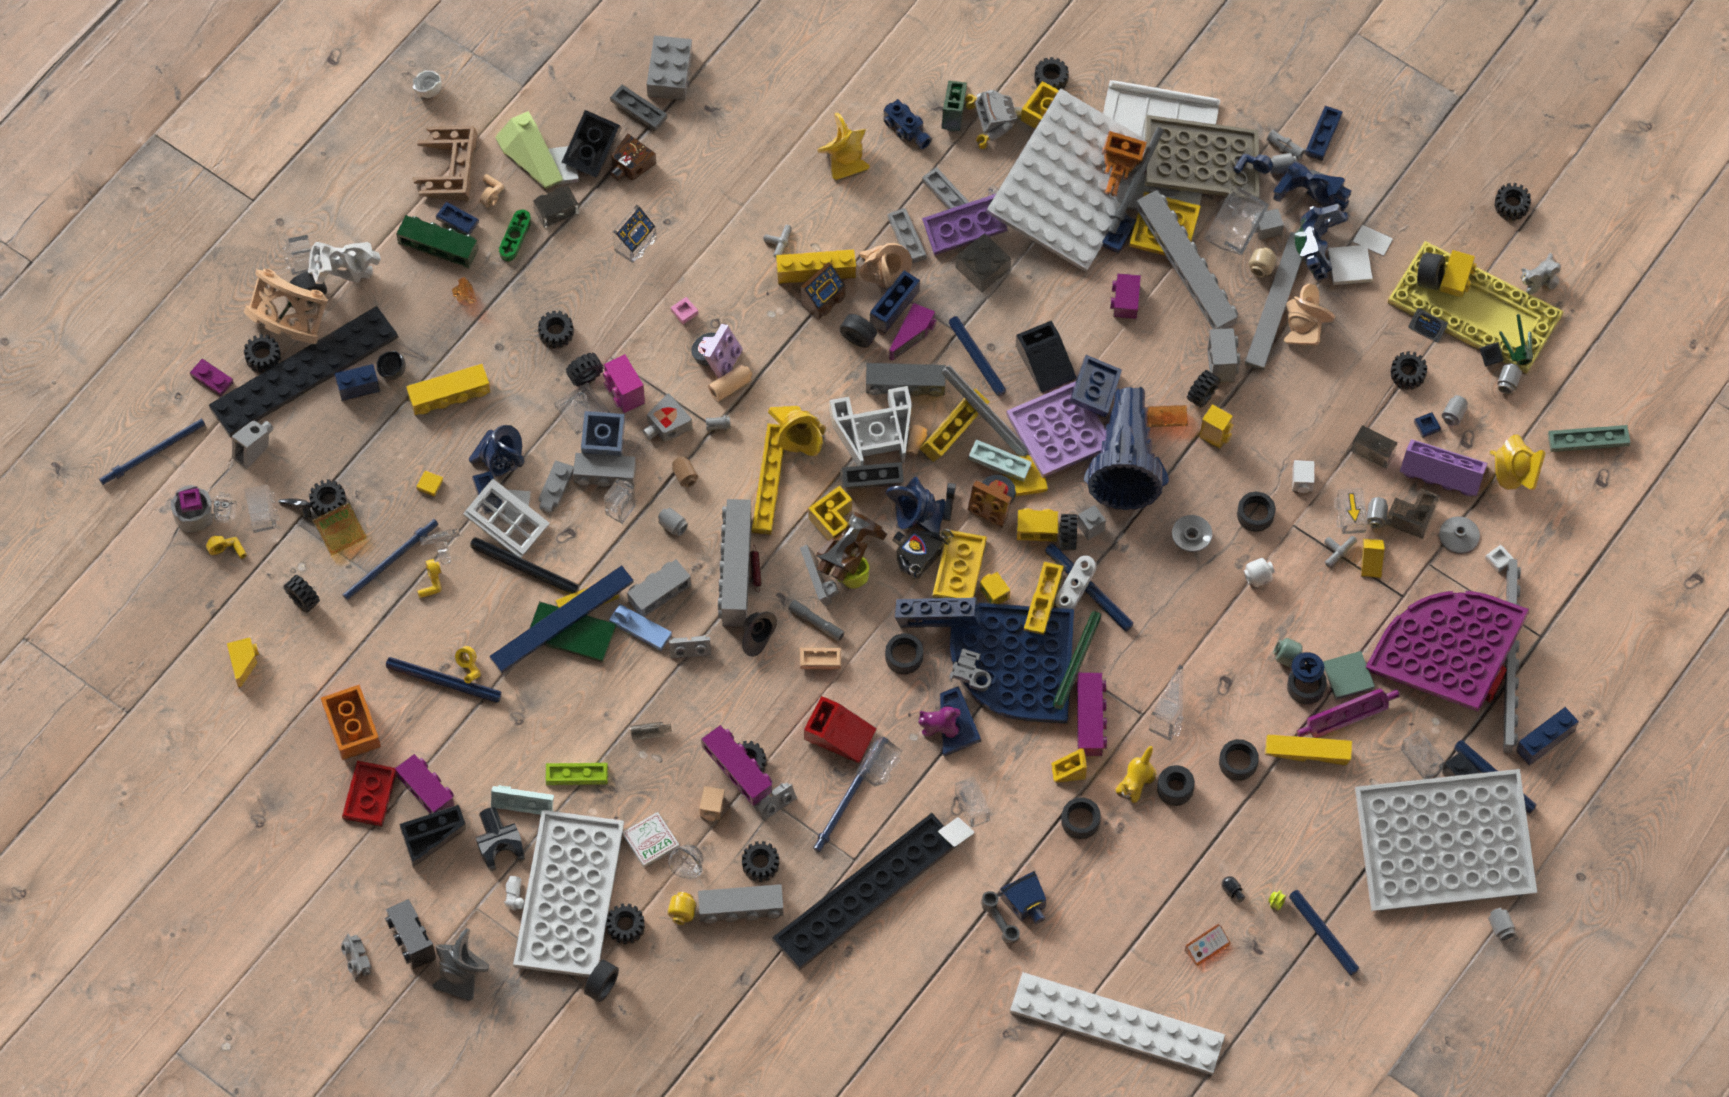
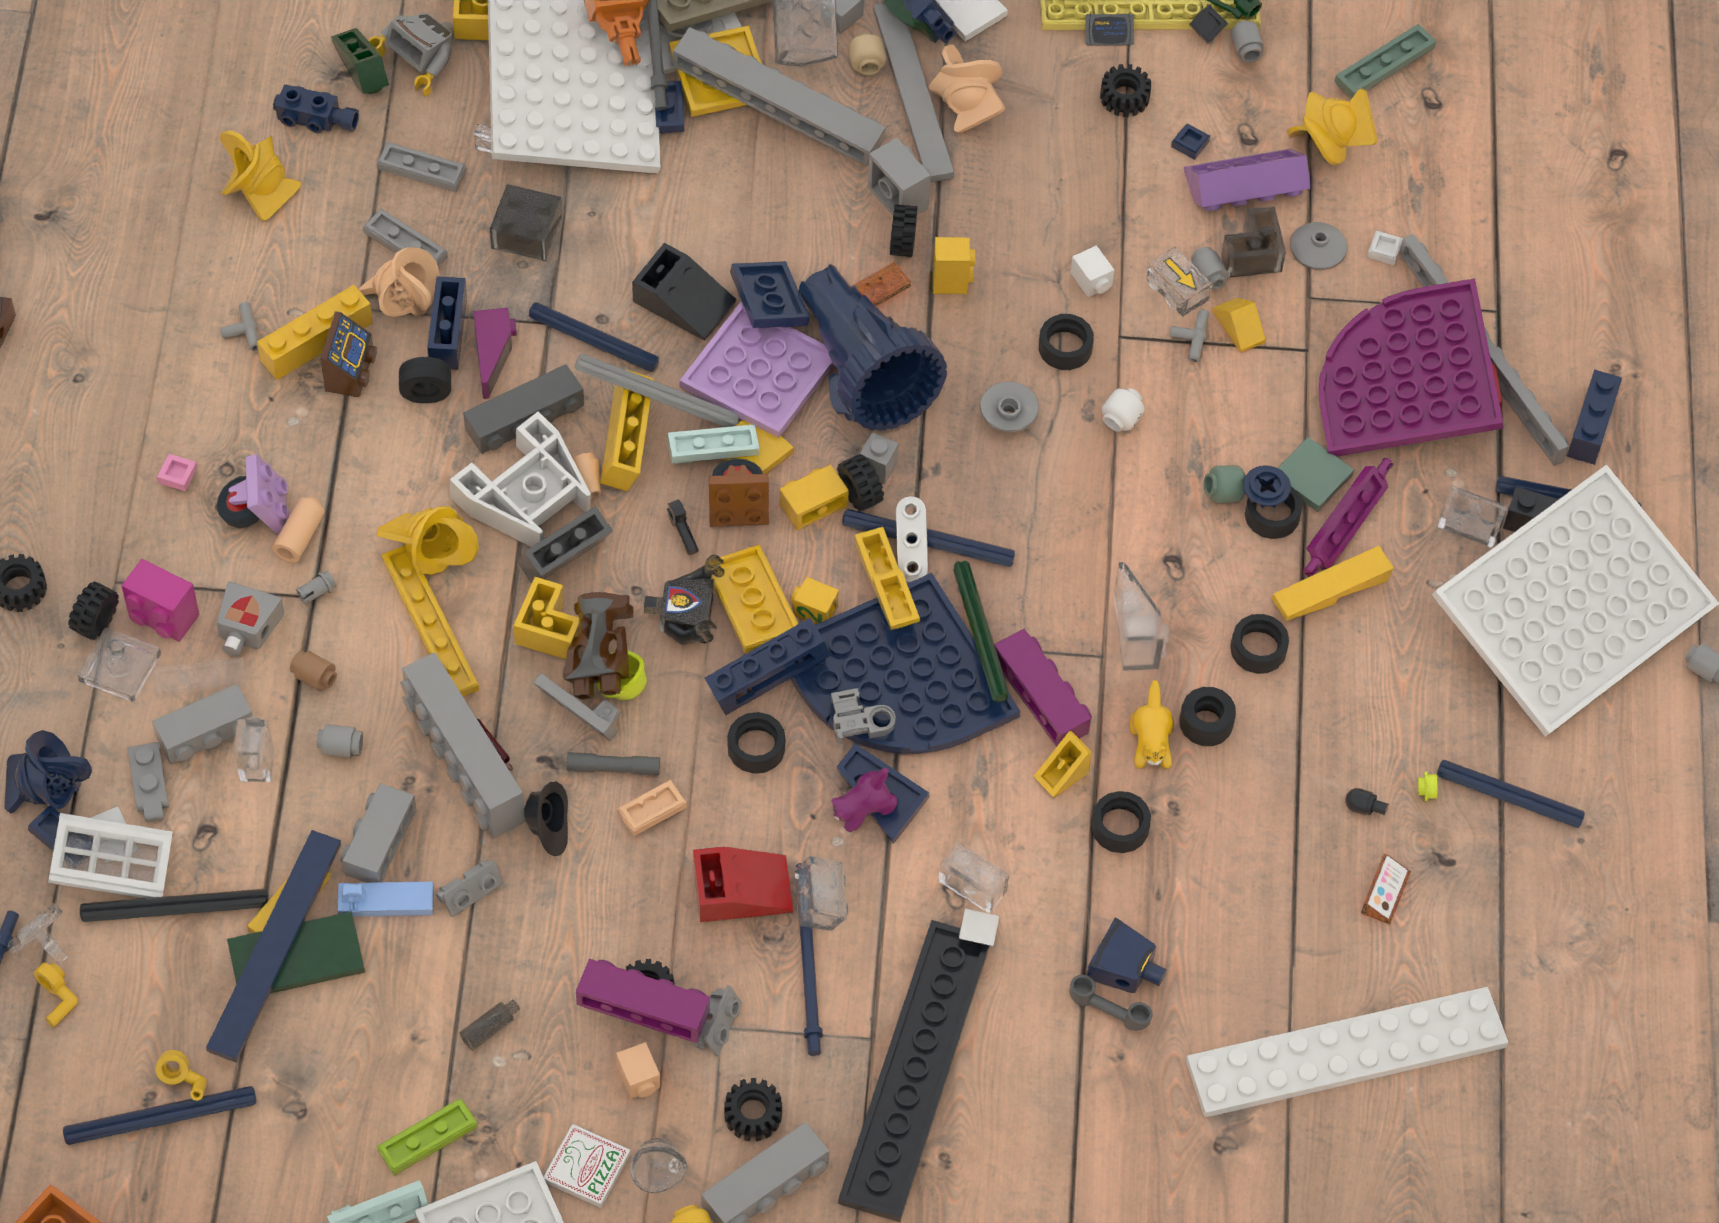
camera: 35 degrees left, 5 degrees down
(603, 433) = (174, 676): sand blue brick -> none
(634, 234) = (49, 411): slope -> none
(916, 506) = (646, 553): dark blue helmet -> none
(961, 225) = (469, 192): medium lavender tile -> none
(1126, 296) = (730, 173): magenta brick -> none
(1374, 447) = (1151, 195): clear smoke brick -> none
(1455, 410) = (1212, 107): light grey brick -> none

